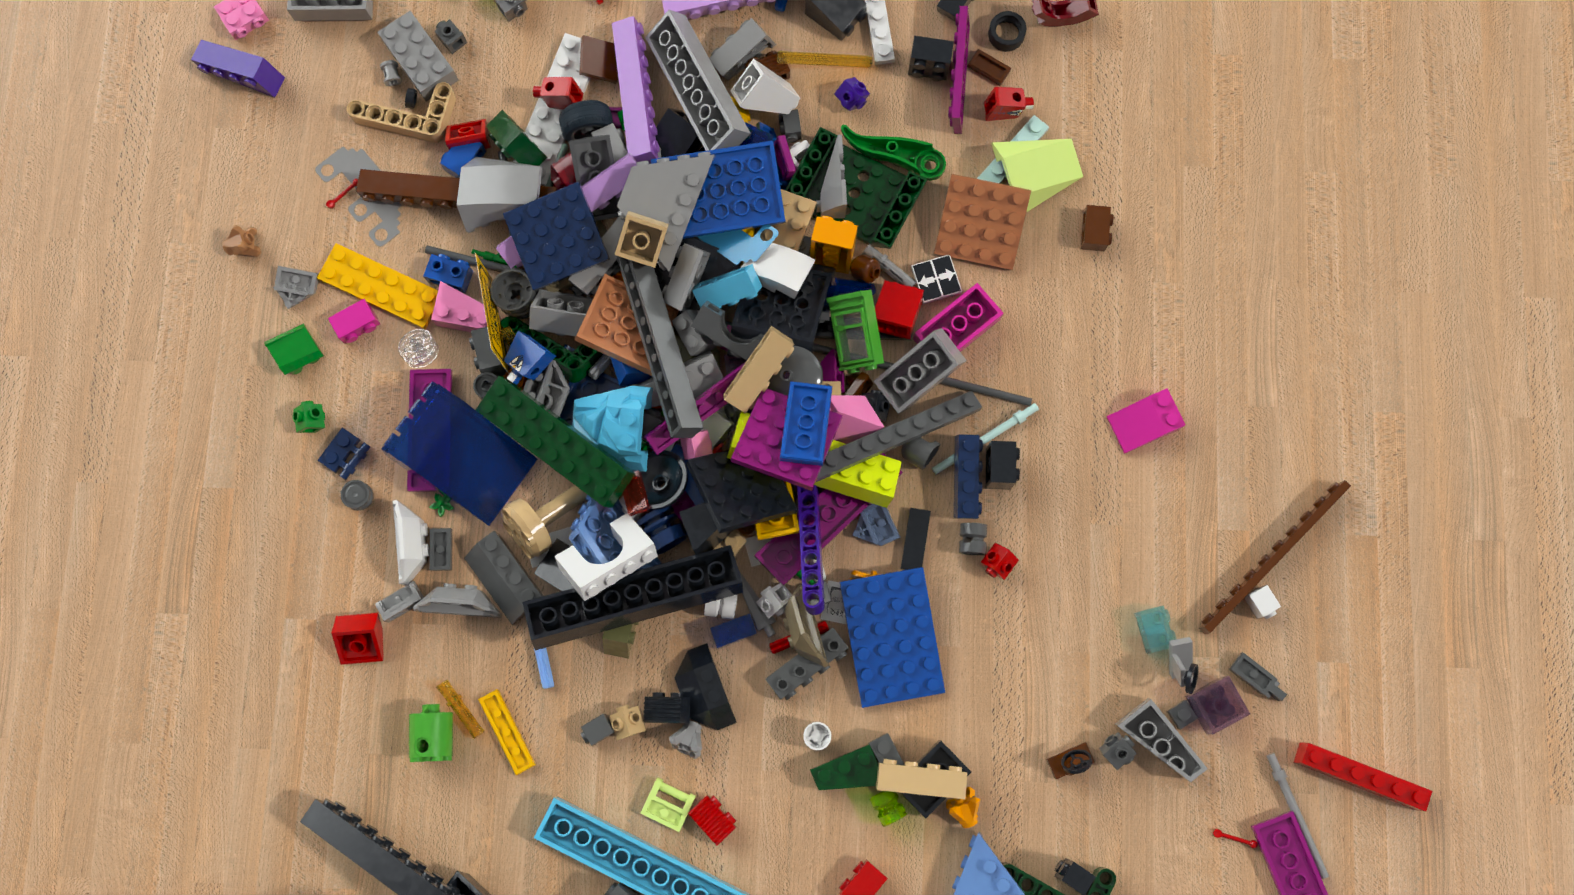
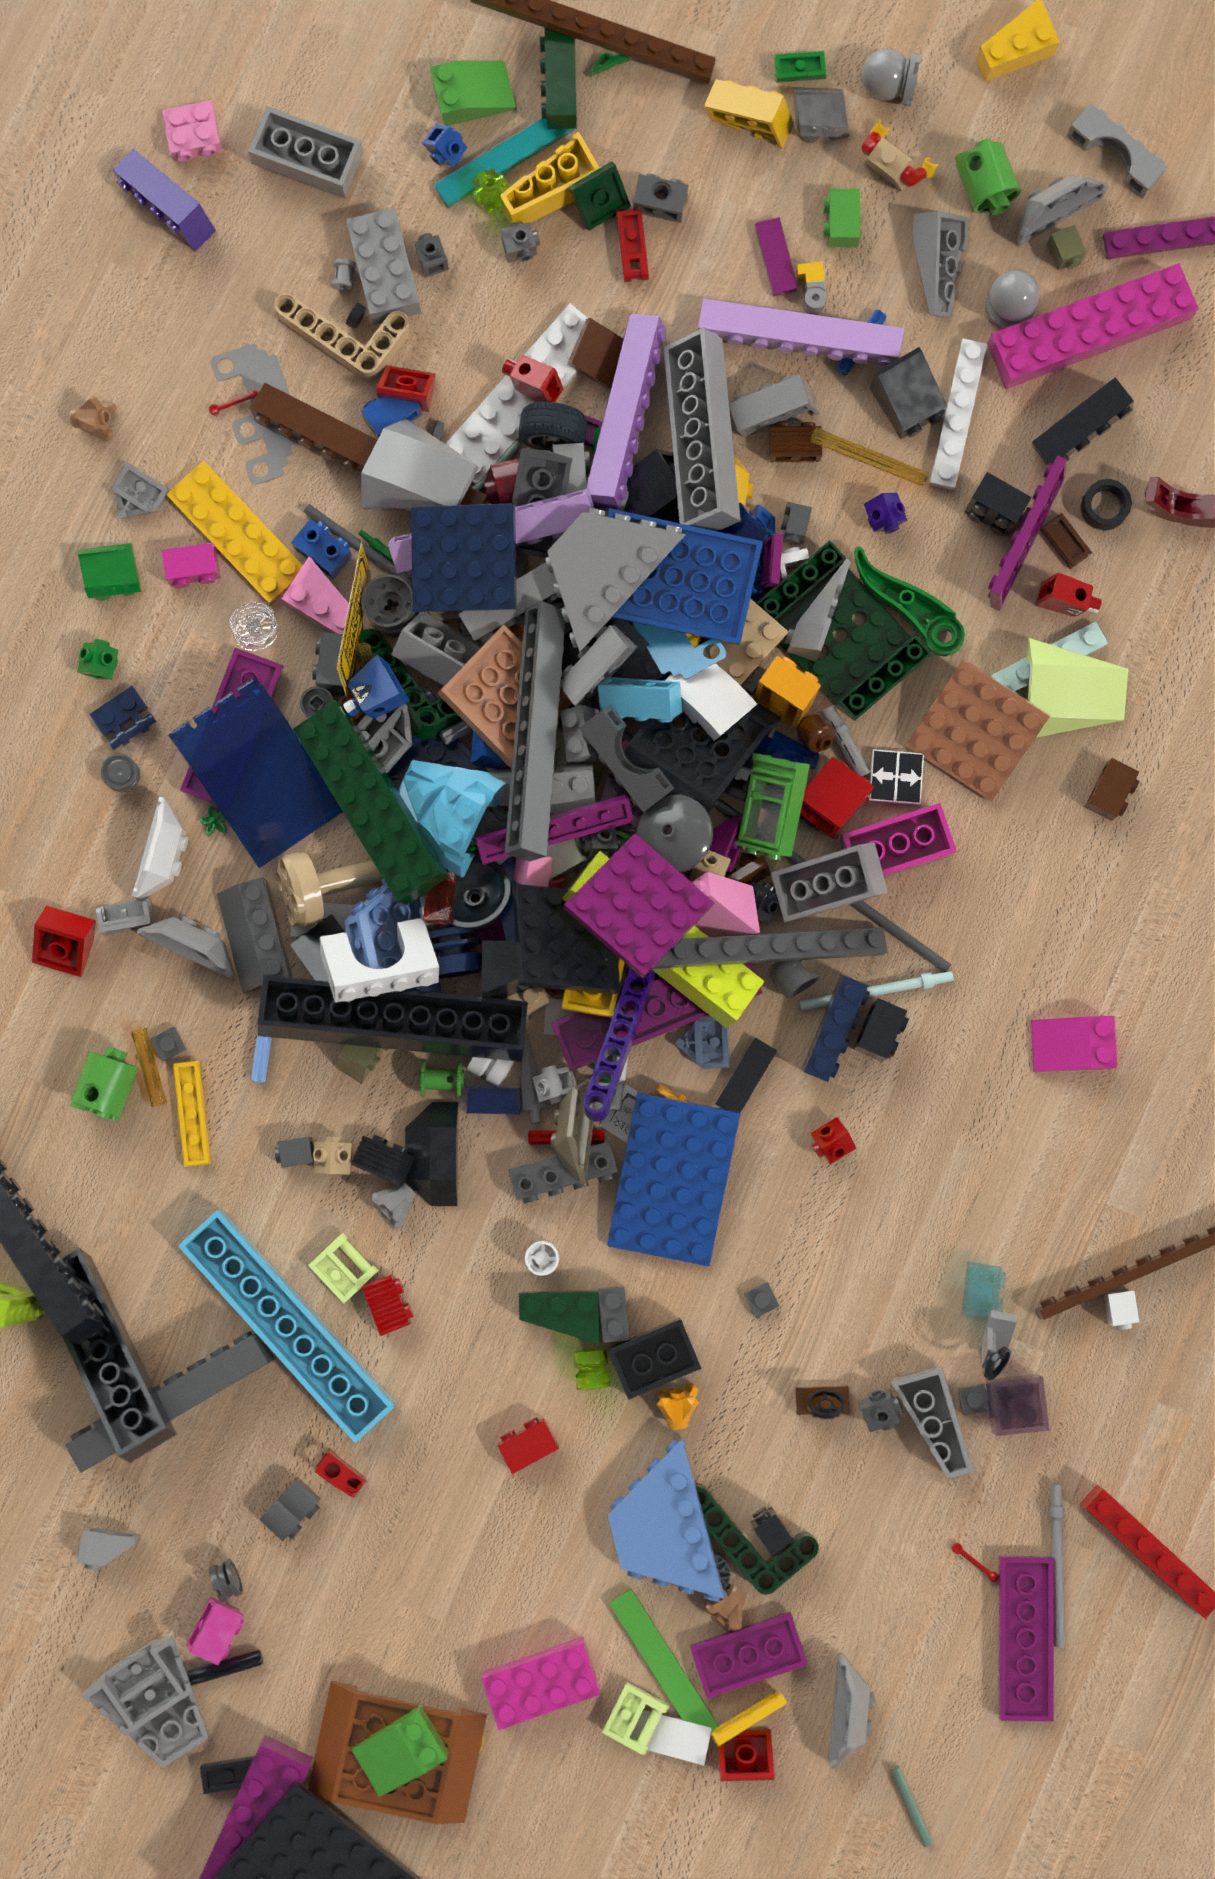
camera: 20 degrees right, 5 degrees up
(440, 549) = (193, 874): dark grey plate -> none
(469, 685) = (168, 1044): none -> dark grey plate
(514, 140) = (458, 418): dark green wedge -> none
(641, 239) = (561, 603): tan brick -> none
(684, 631) = (438, 1079): none -> bright green hose
(759, 369) = (638, 811): tan brick -> none
(764, 90) = (780, 470): white slope -> none
(806, 423) = (667, 897): blue tile -> none
(921, 780) = (640, 1355): tan brick -> none
(973, 539) = (813, 1102): dark grey wheel -> none
(994, 702) = (761, 1299): none -> dark grey plate
(1257, 677) = (1077, 1391): dark grey hinge -> none

